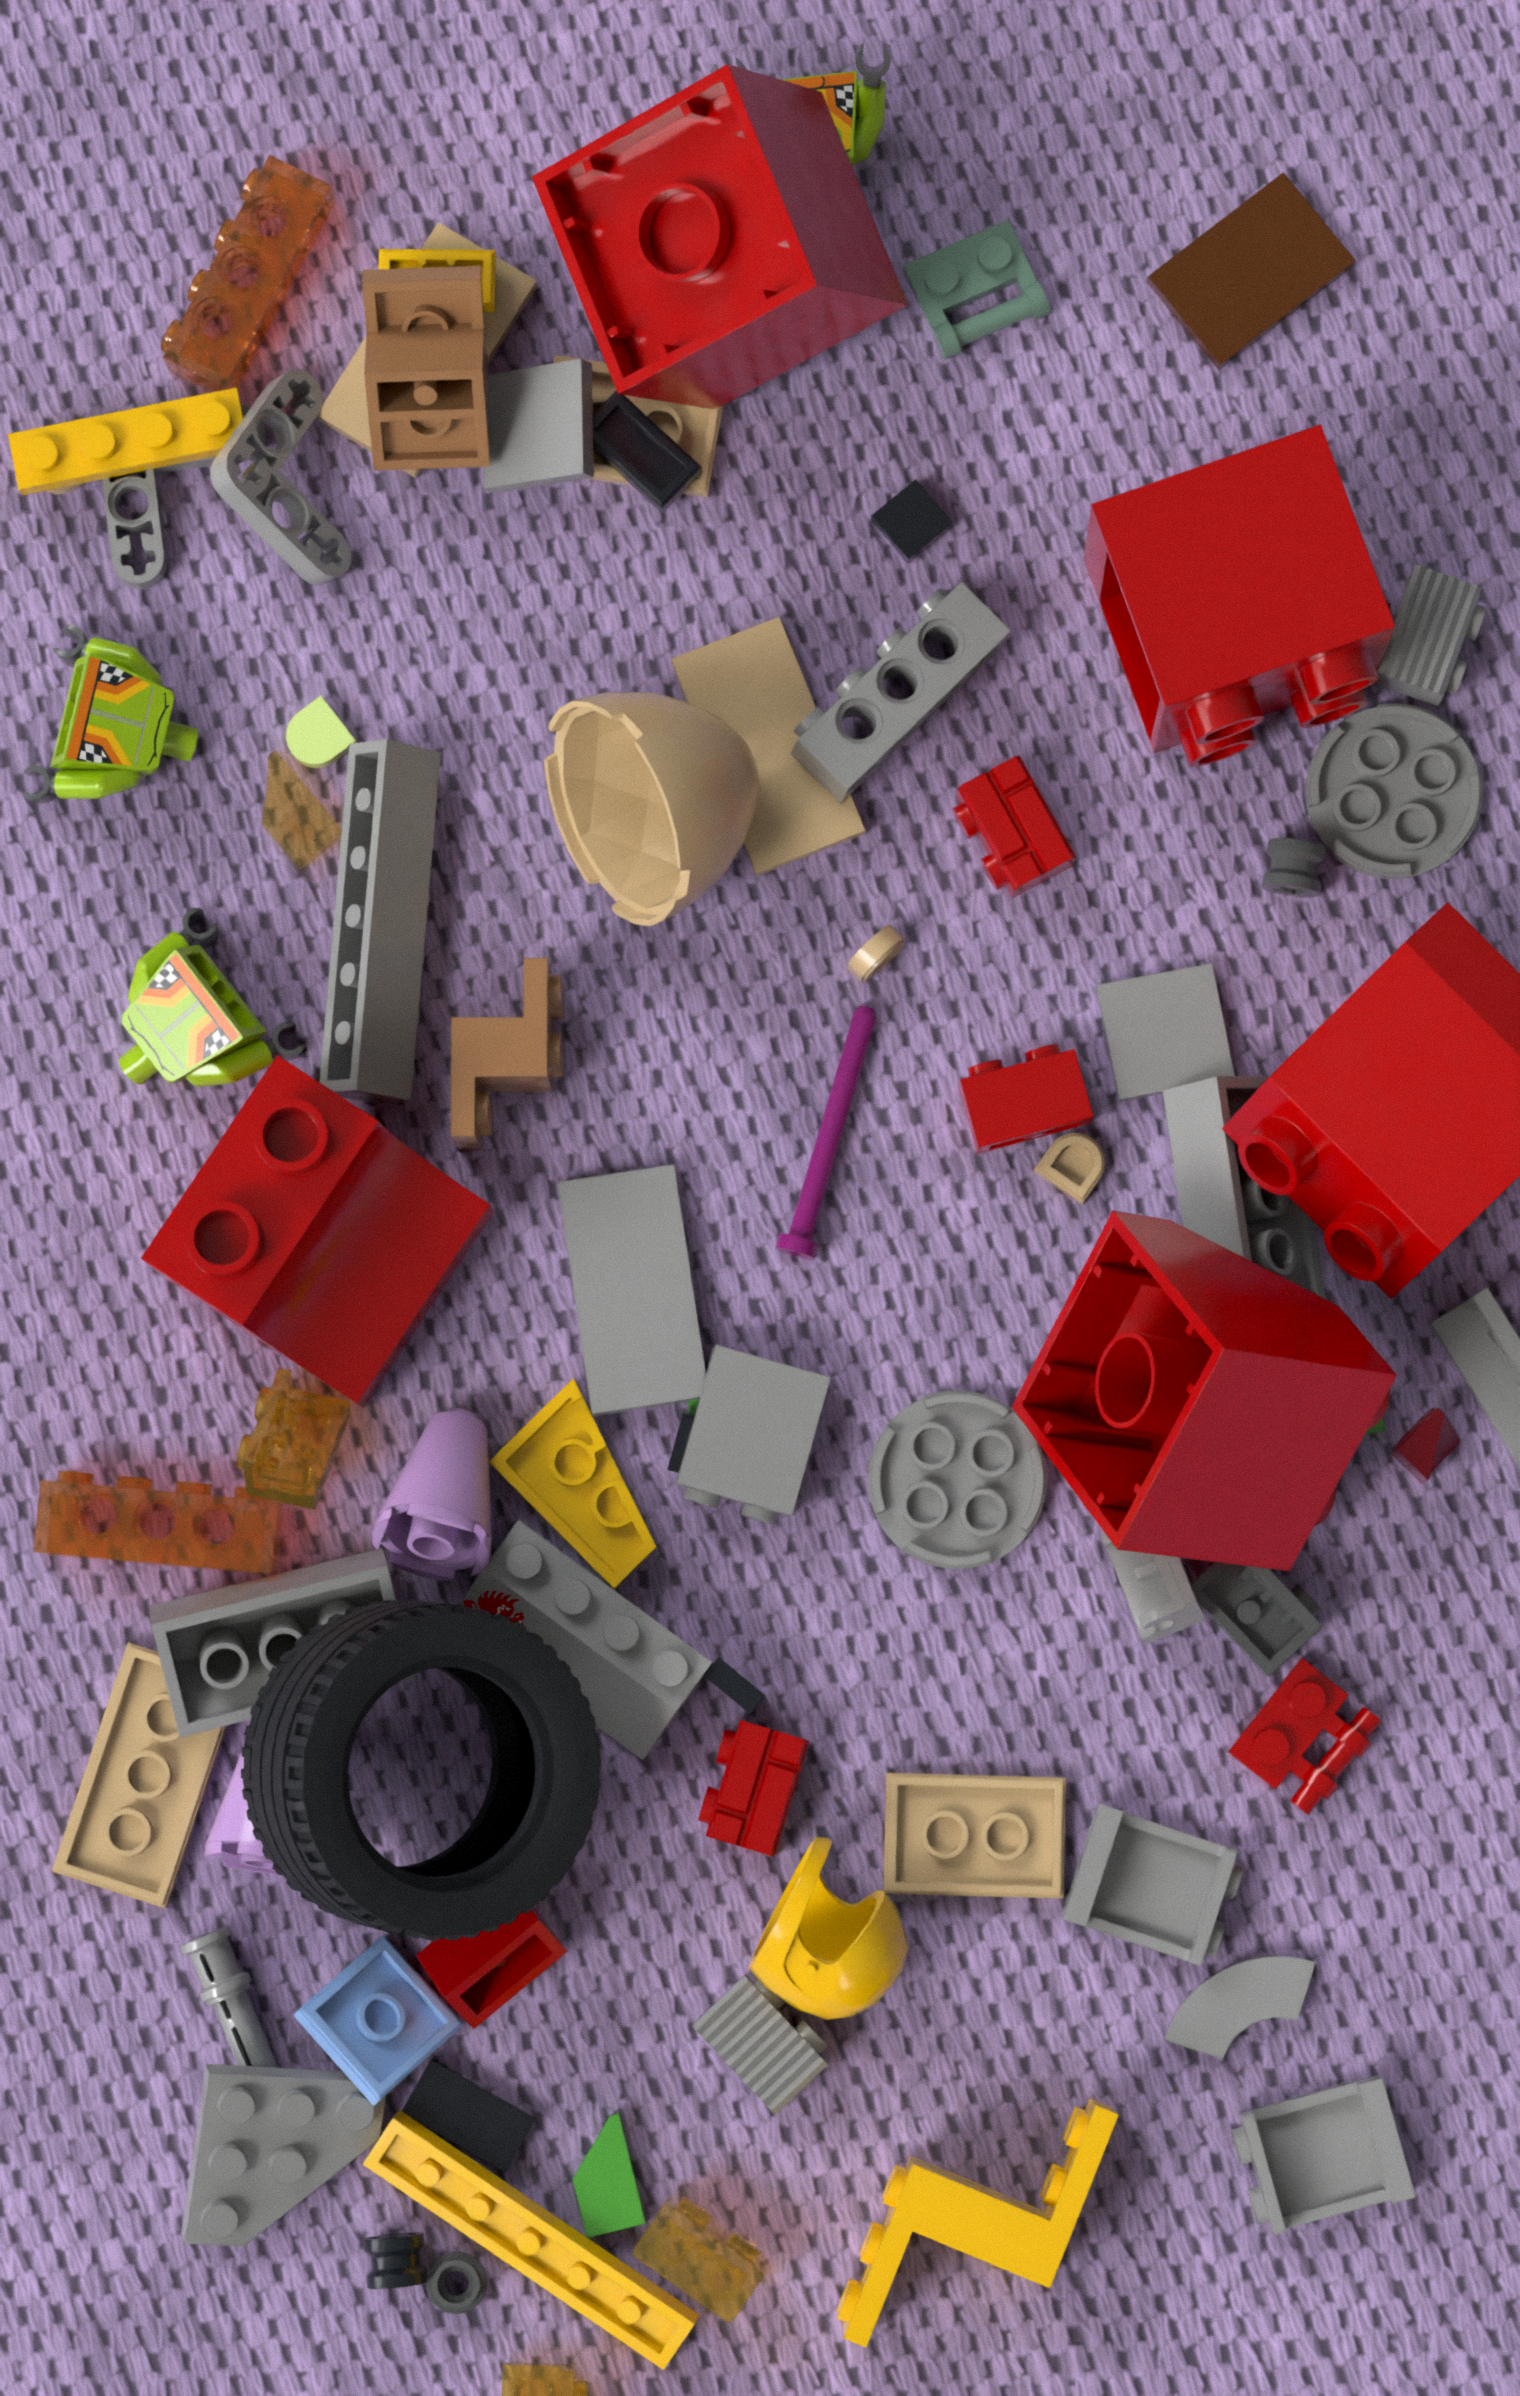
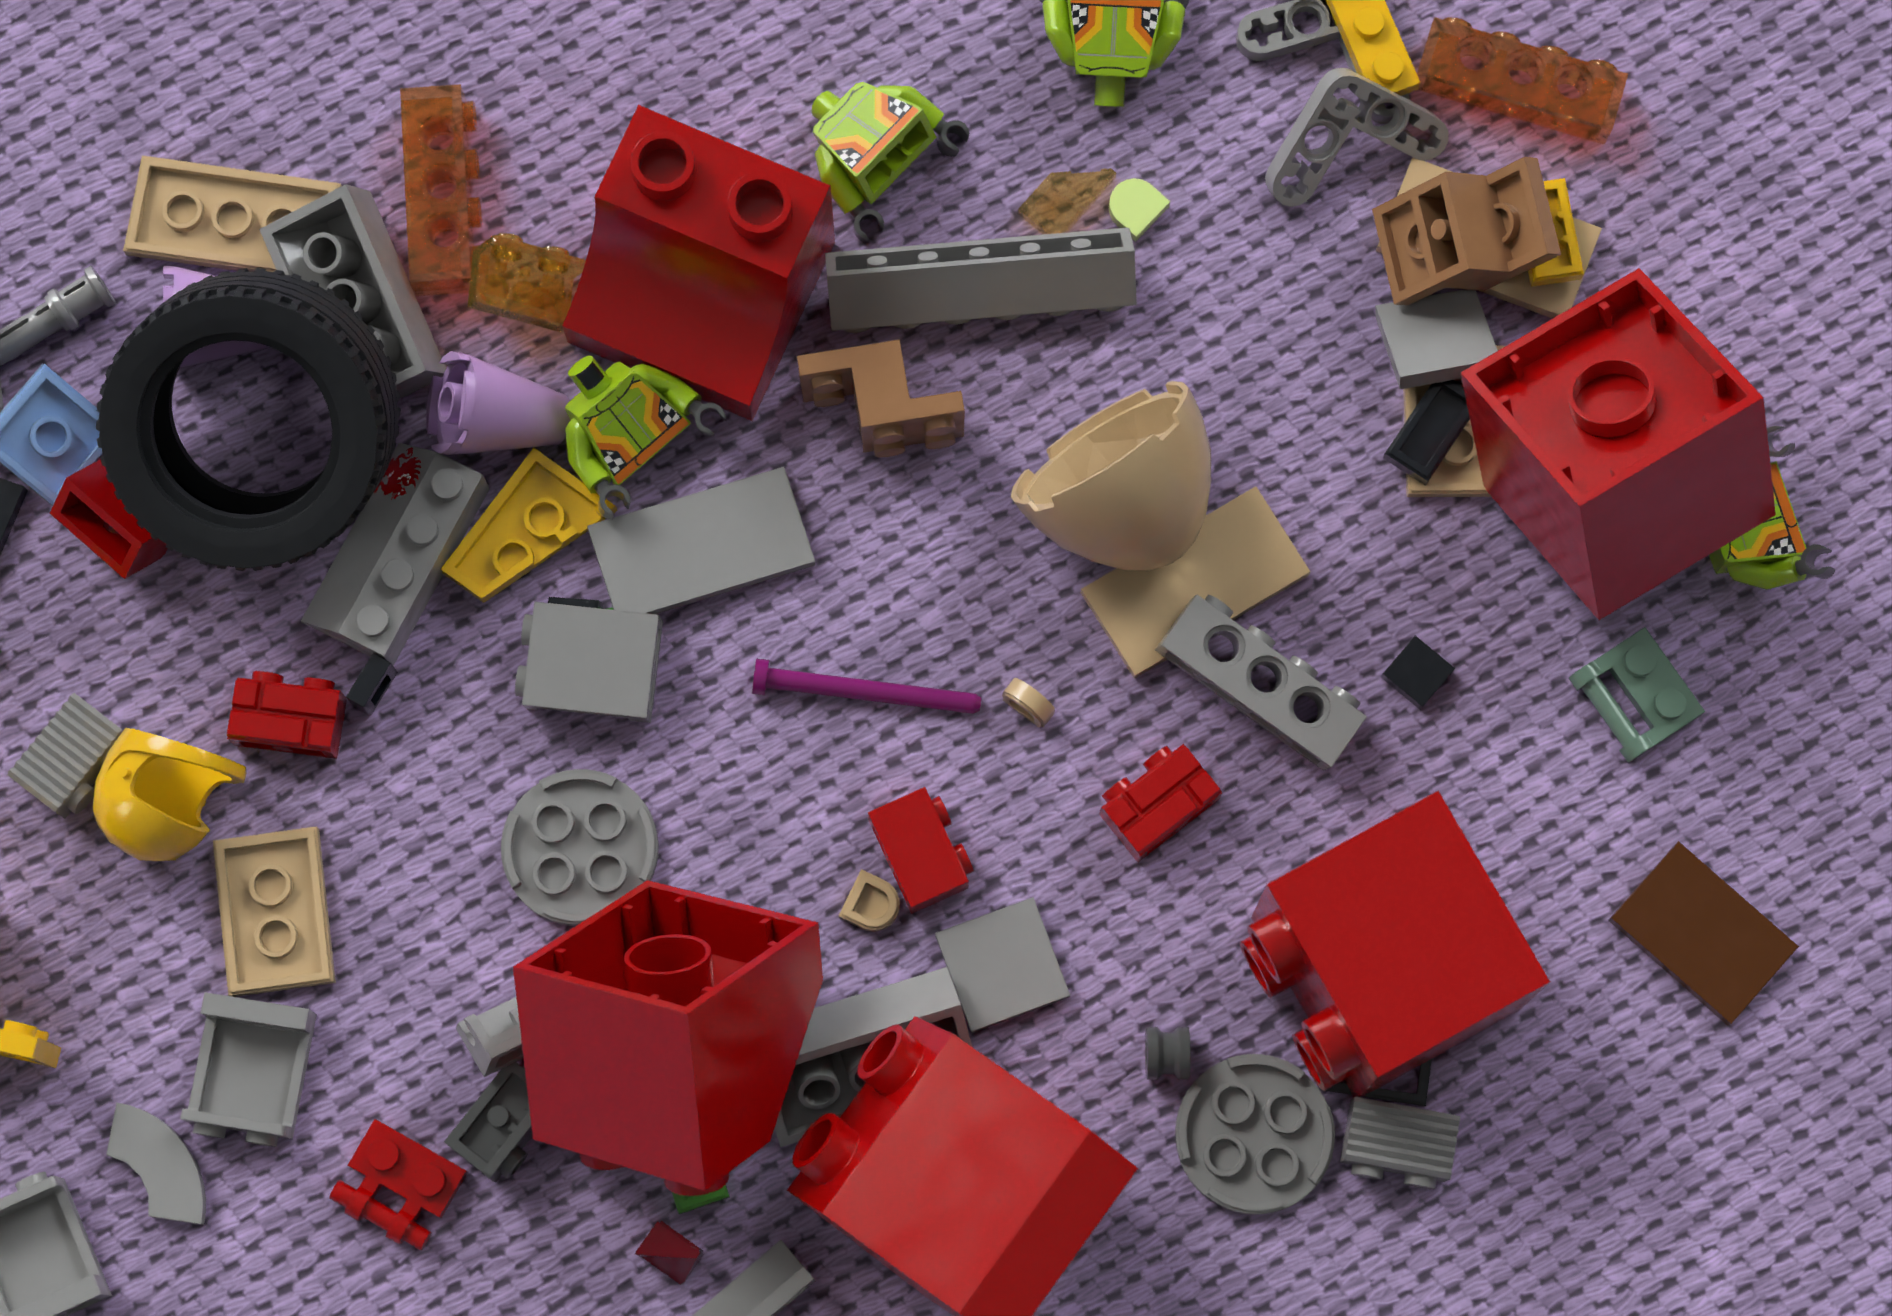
camera: 75 degrees right, 5 degrees down
(480, 1351) = (624, 421): none -> torso

